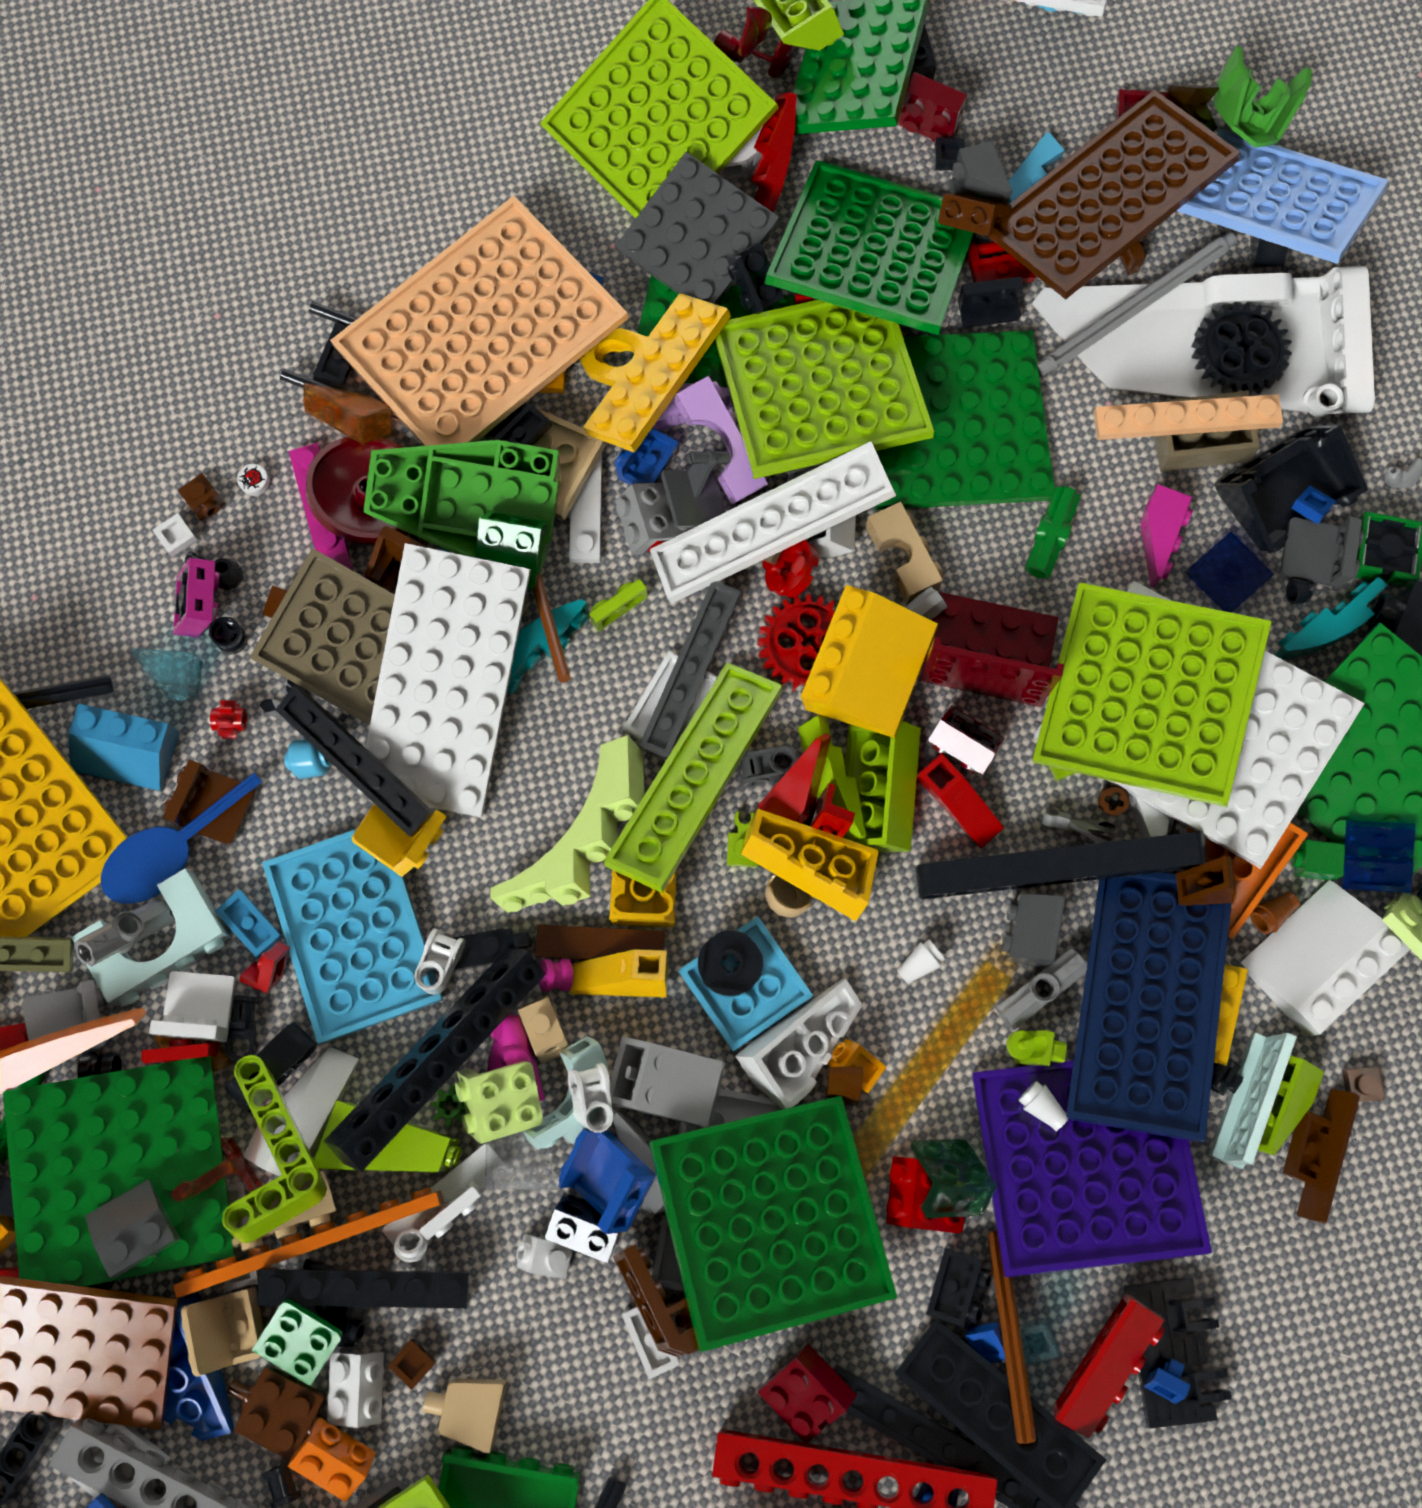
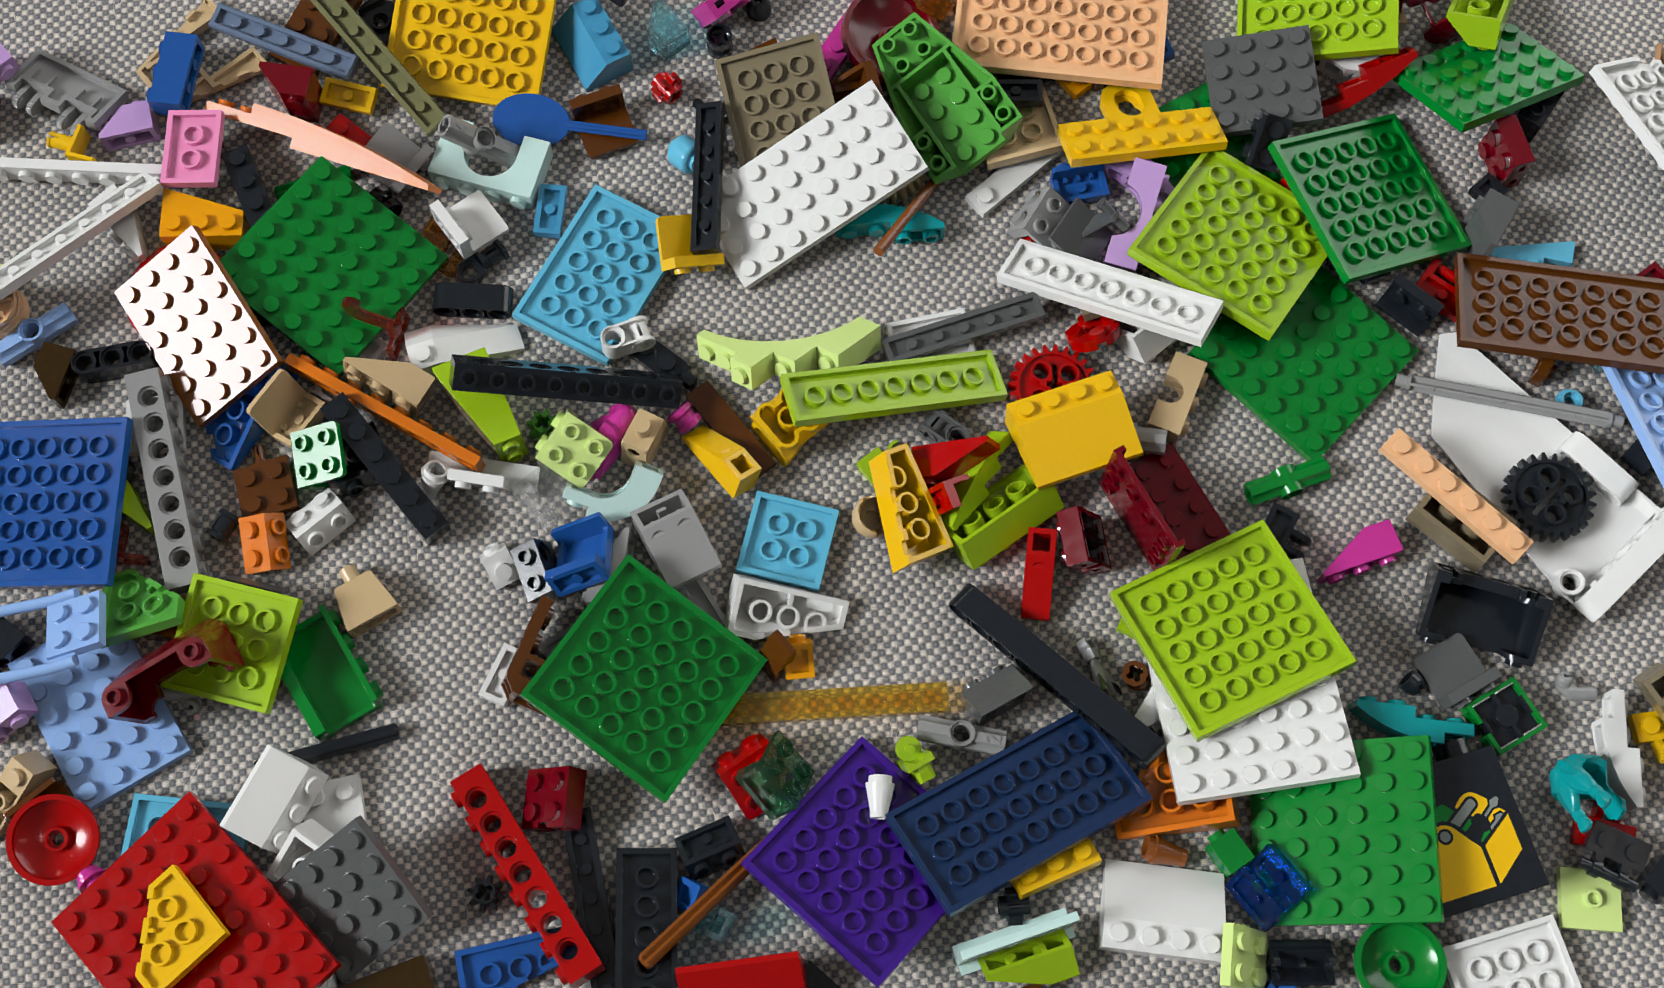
camera: 45 degrees right, 5 degrees down
(131, 1229) = (301, 298): dark grey slope -> none
(179, 1050) = (434, 235): red plate -> none
(268, 970) = (532, 245): red bracket -> none
(281, 1146) = (415, 364): lime beam -> none
(412, 1363) = (363, 541): reddish brown plate -> none
(511, 540) = (938, 145): green bracket -> none
(588, 1091) = (625, 497): white piece -> none
(609, 610) = (964, 251): lime plate -> none
(718, 949) = (787, 532): black plate -> none
(921, 962) = (906, 641): white cone -> none
(971, 212) = (1457, 236): reddish brown bracket -> none
(1084, 569) = (1282, 523): none -> black hinge
(1174, 253) = (1570, 395): none -> medium azure plate
(1206, 883) = (1133, 778): reddish brown slope -> none
(1229, 573) = (1378, 625): clear blue plate -> none
(1313, 504) = (1484, 639): blue plate -> none

